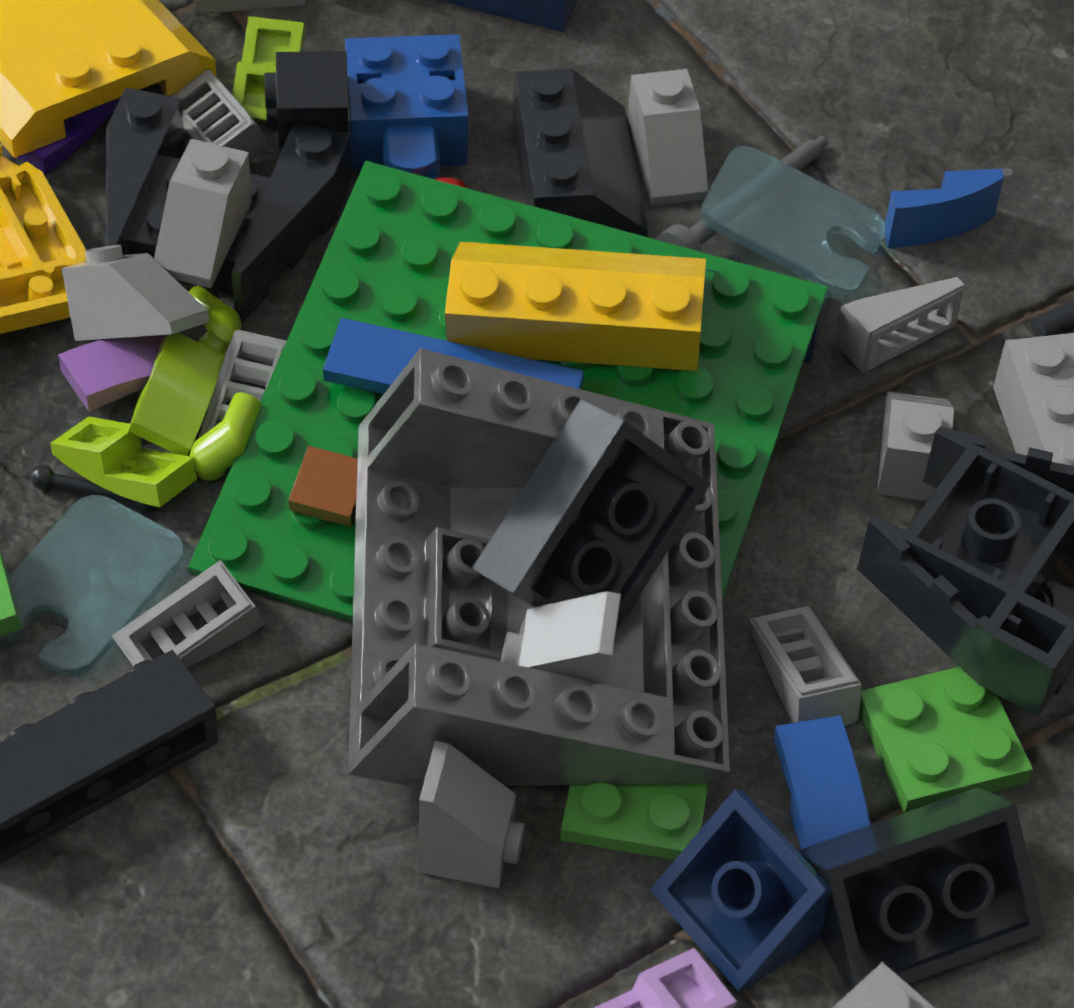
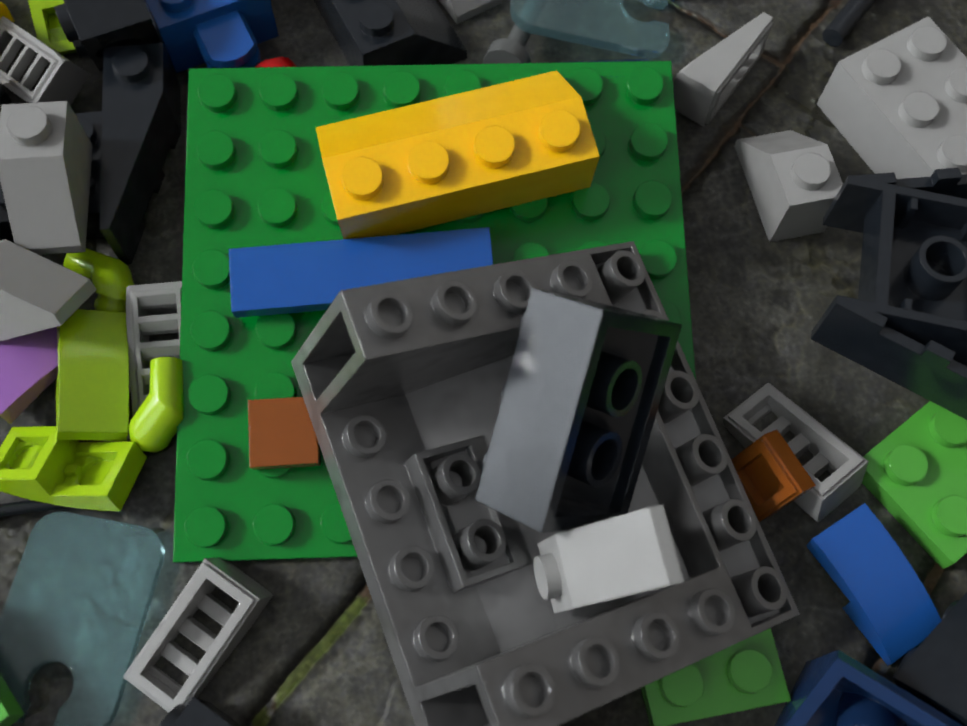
camera: 20 degrees left, 15 degrees up
(762, 671) = (771, 474): none -> dark orange tile

